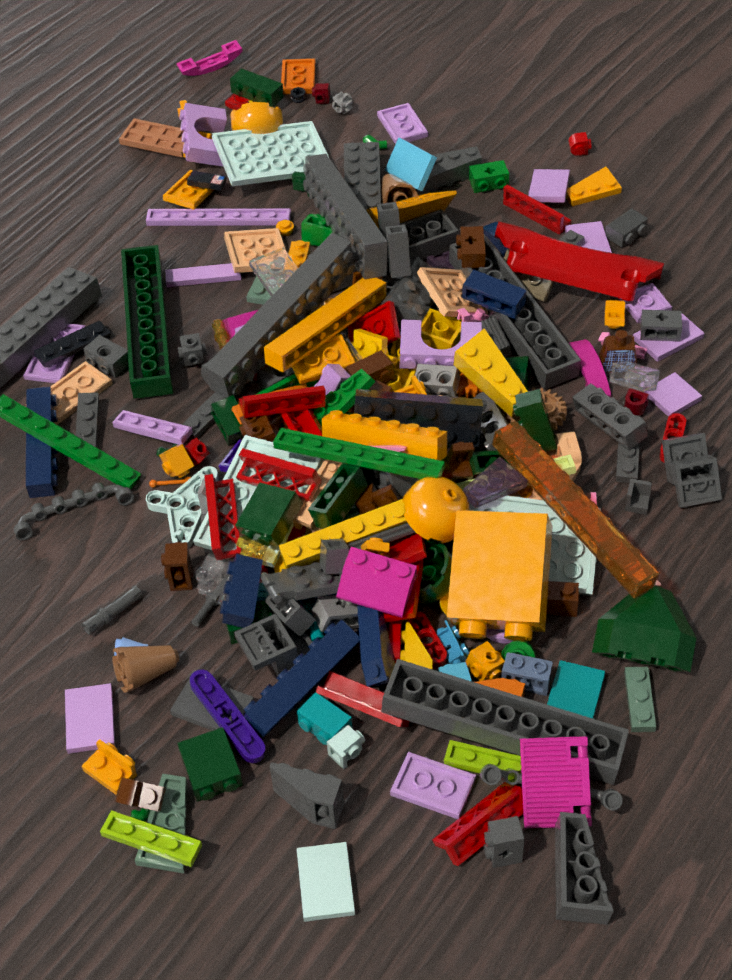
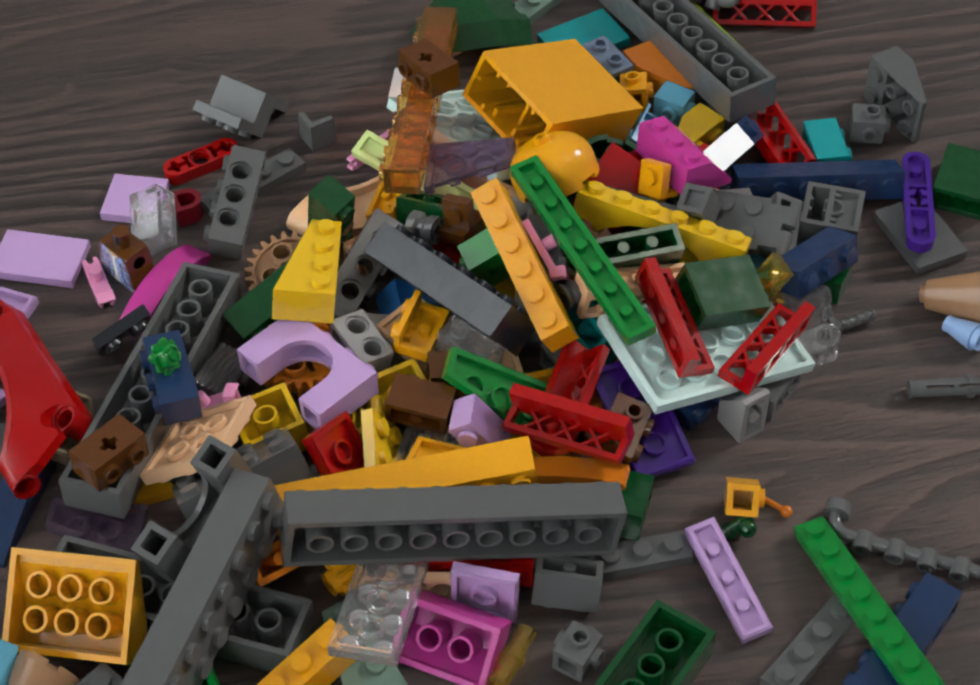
camera: 140 degrees left, 0 degrees up
(178, 566) = (850, 360): reddish brown brick -> none
(179, 515) = (760, 458): light aqua beam -> none
(196, 451) = (705, 500): red plate -> none
(311, 756) = (868, 123): none -> dark grey brick
(325, 881) = (937, 52): light aqua tile -> none
(345, 746) = (826, 110): light aqua brick -> none
(433, 785) = (779, 56): lavender tile -> none
(480, 443) = (424, 227): none -> dark grey wheel
(496, 279) = (165, 356): none -> green plant
(564, 317) = (131, 324): none -> black plate
(577, 501) = (429, 68): none -> reddish brown brick
(614, 314) = (58, 312): light orange bracket -> none
(661, 325) = (41, 253): dark grey brick -> none

